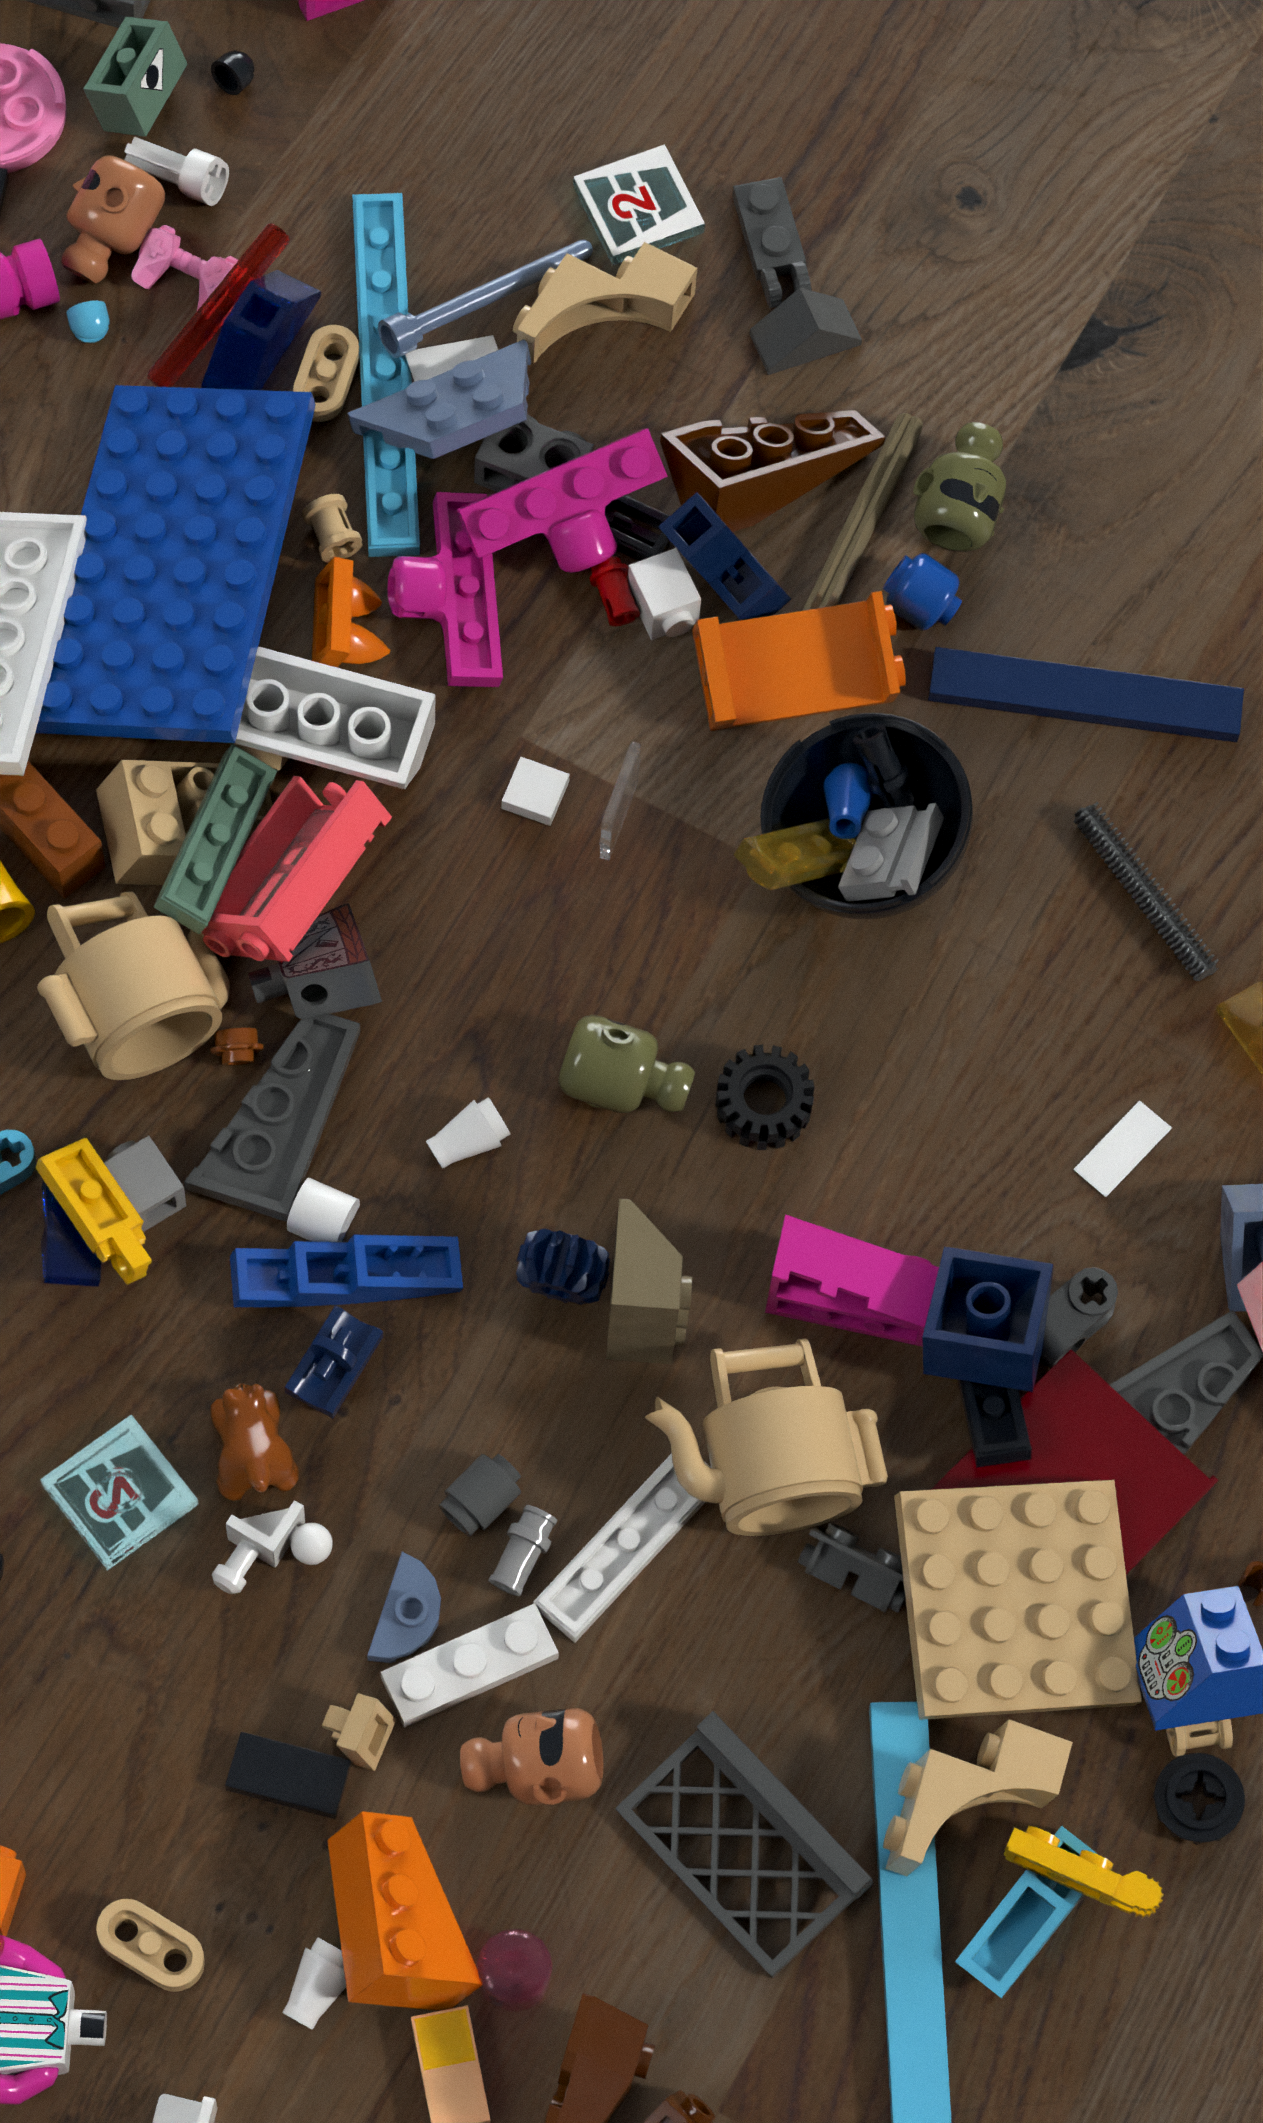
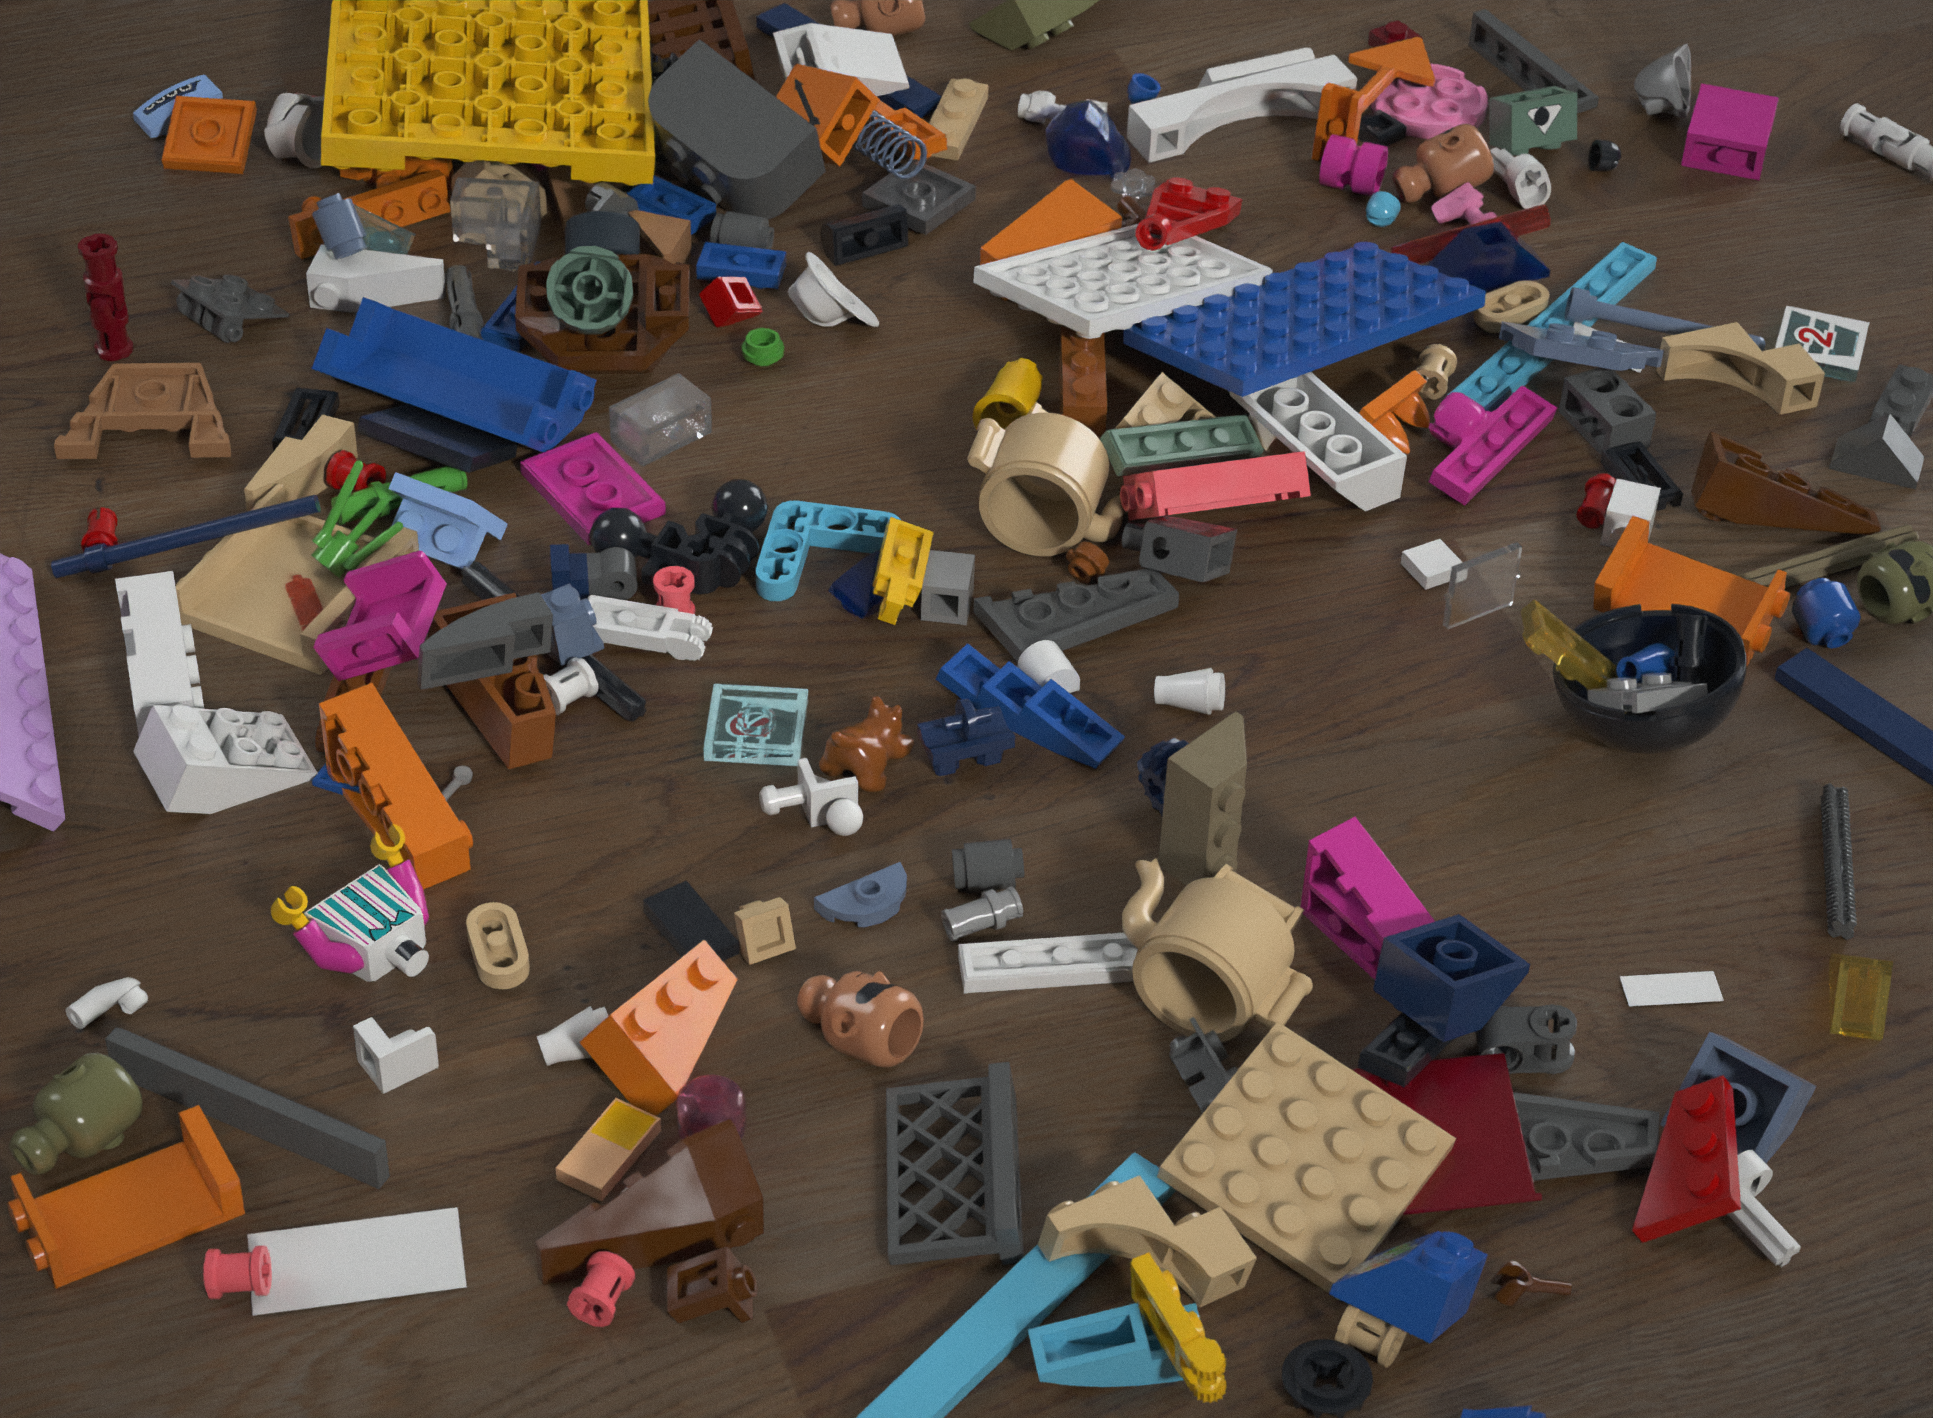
camera: 45 degrees right, 25 degrees down
(469, 1665) = (872, 948): white plate -> none
(566, 503) = (1604, 425): dark pink plate -> none
(618, 1066) = (1332, 712): olive piece -> none
(723, 560) = (1688, 508): dark blue brick -> none
(768, 1067) = (1418, 812): black tyre -> none

